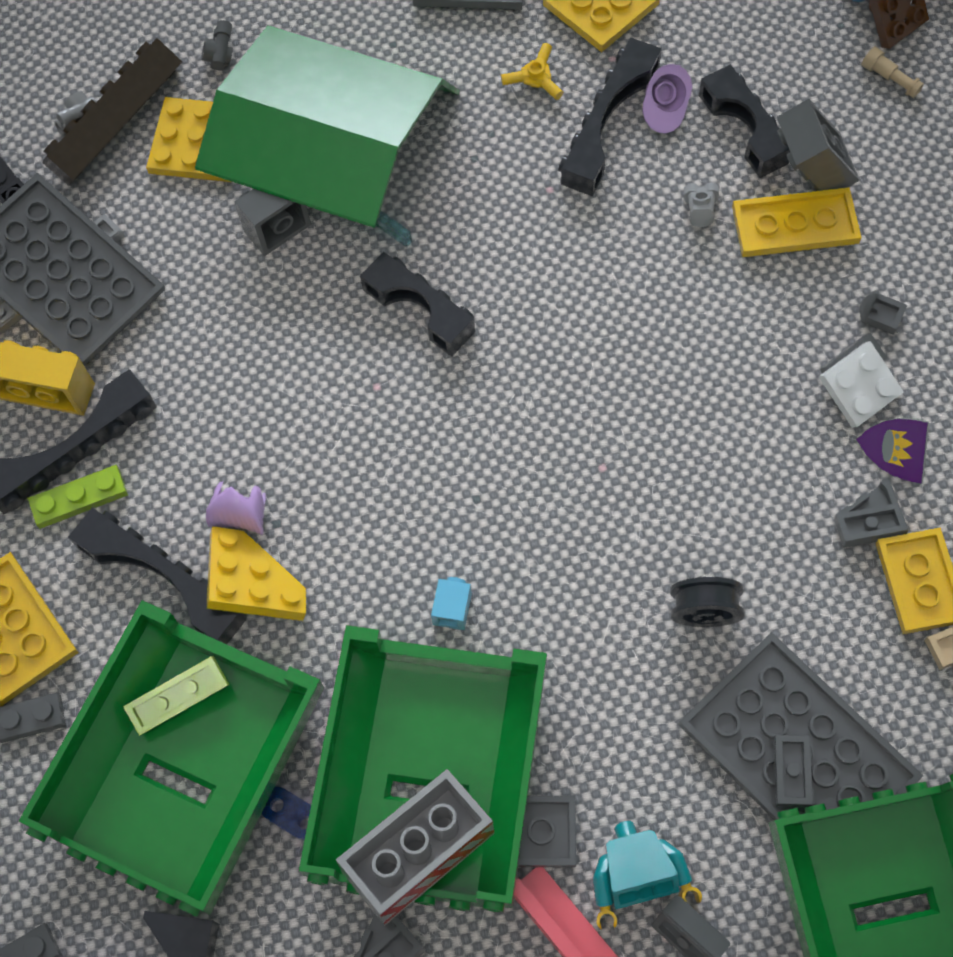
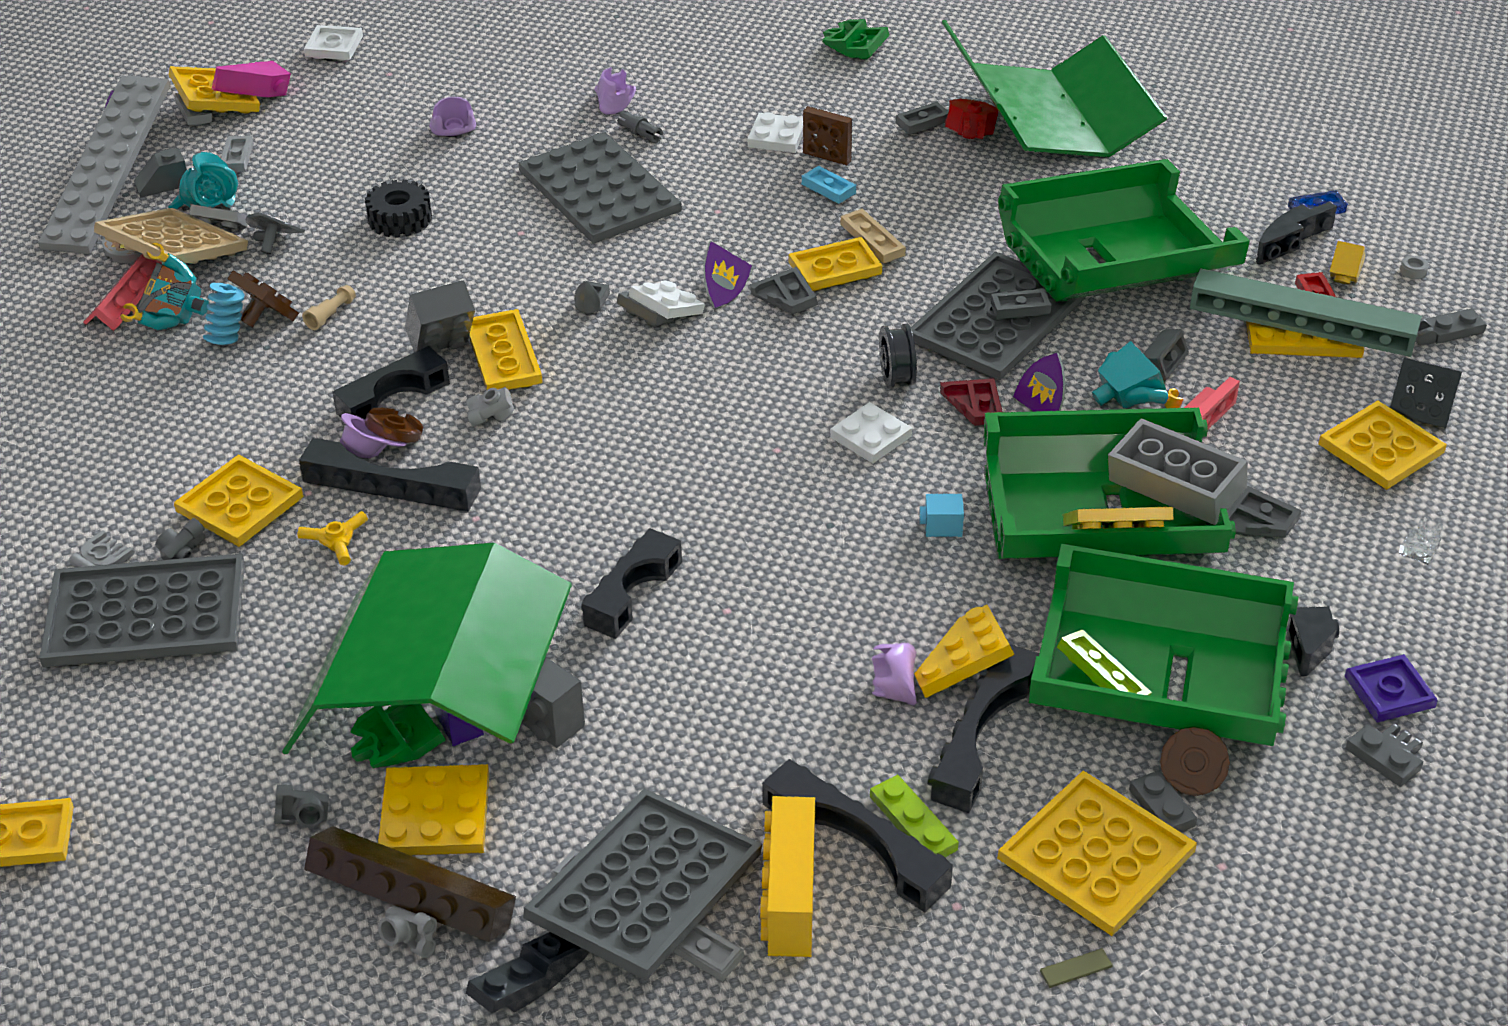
camera: 105 degrees left, 25 degrees down
(42, 750) = (1195, 761): none -> reddish brown tile
(361, 758) = (1118, 517): none -> yellow plate
(608, 564) = (871, 432): none -> white plate
(634, 760) = (1043, 385): none -> dark purple shield
(639, 685) = (973, 398): none -> dark red wing
(680, 119) = (391, 426): none -> reddish brown tile

